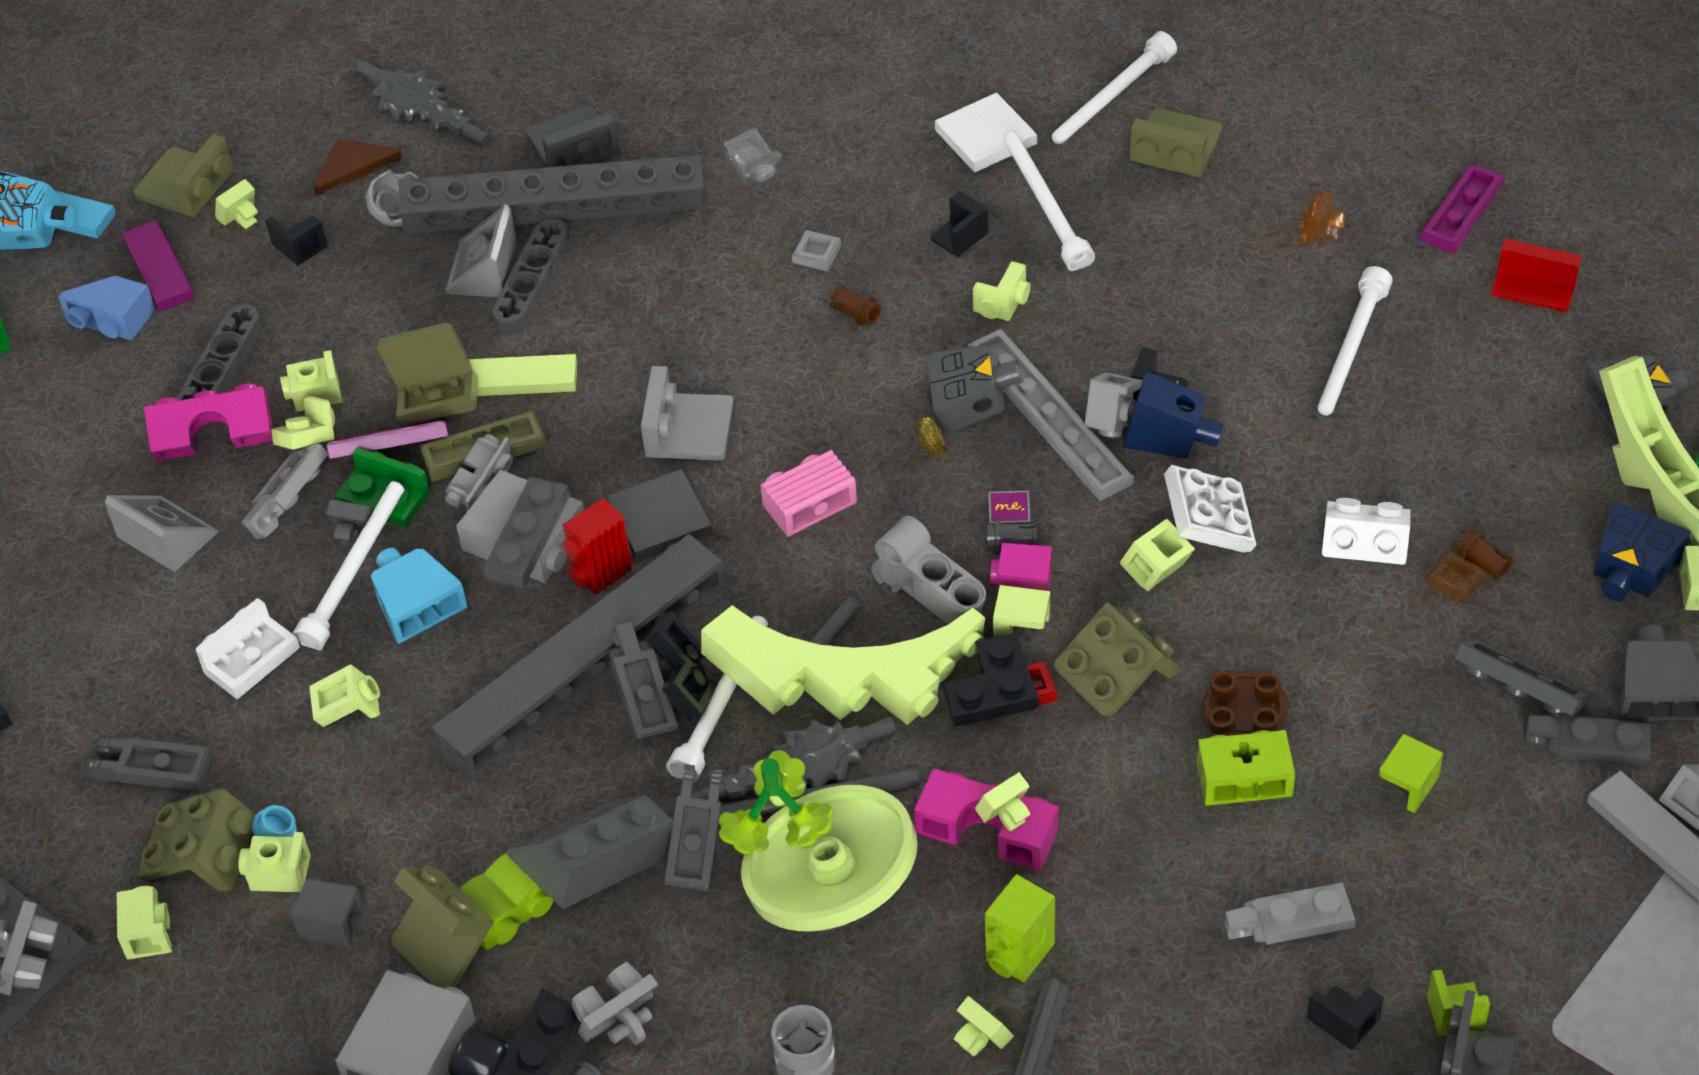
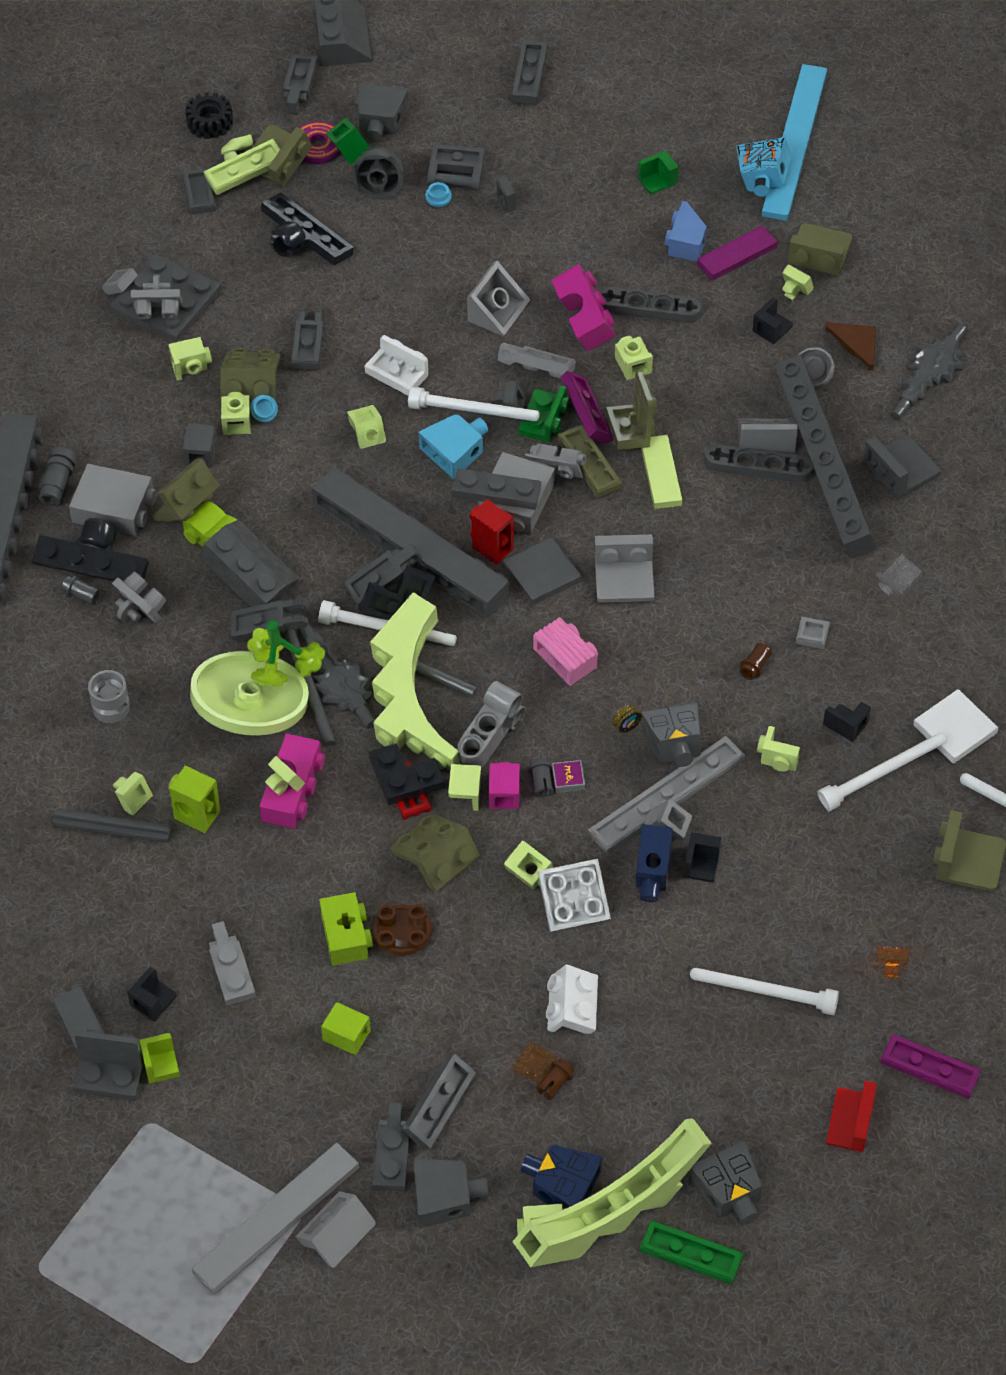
camera: 80 degrees right, 5 degrees up
(307, 430) = (585, 361): yellowish green bracket -> none

